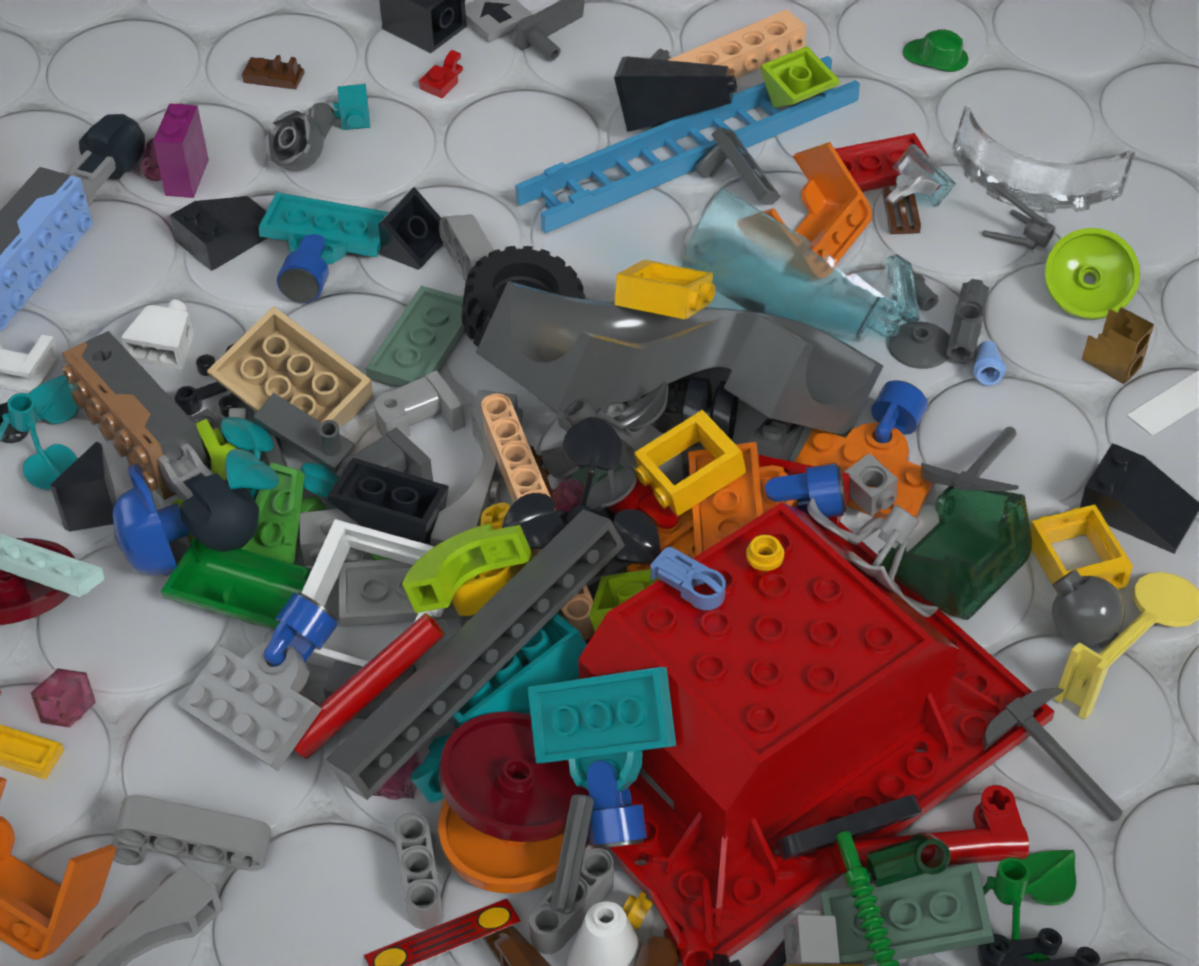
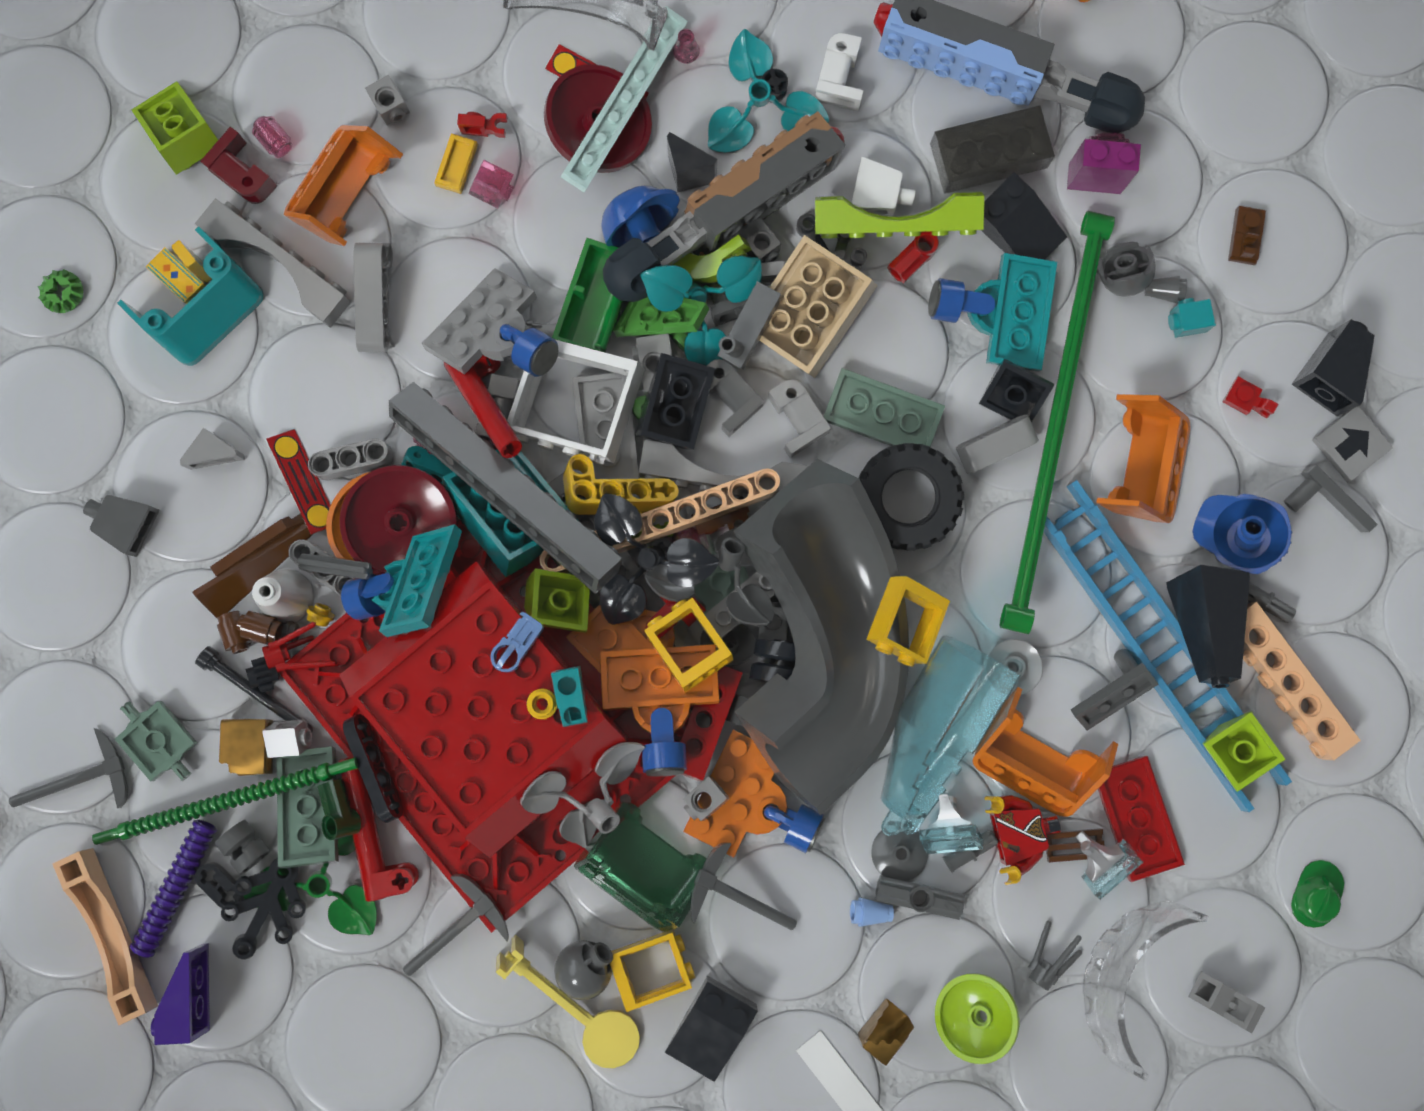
camera: 85 degrees right, 35 degrees up
(137, 242) = (992, 149): none -> clear smoke brick
(189, 348) = (957, 213): none -> lime arch
(240, 303) = (913, 257): none -> red piece
(453, 562) = (583, 457): lime arch -> none
(496, 137) = (1153, 460): none -> orange windscreen
(579, 71) = (1243, 531): none -> blue piece
(658, 224) = (1017, 615): none -> green piece
(748, 518) = (570, 696): none -> teal leg
(894, 235) = (1019, 834): none -> red torso
(1050, 105) = (1226, 1002): none -> light grey brick

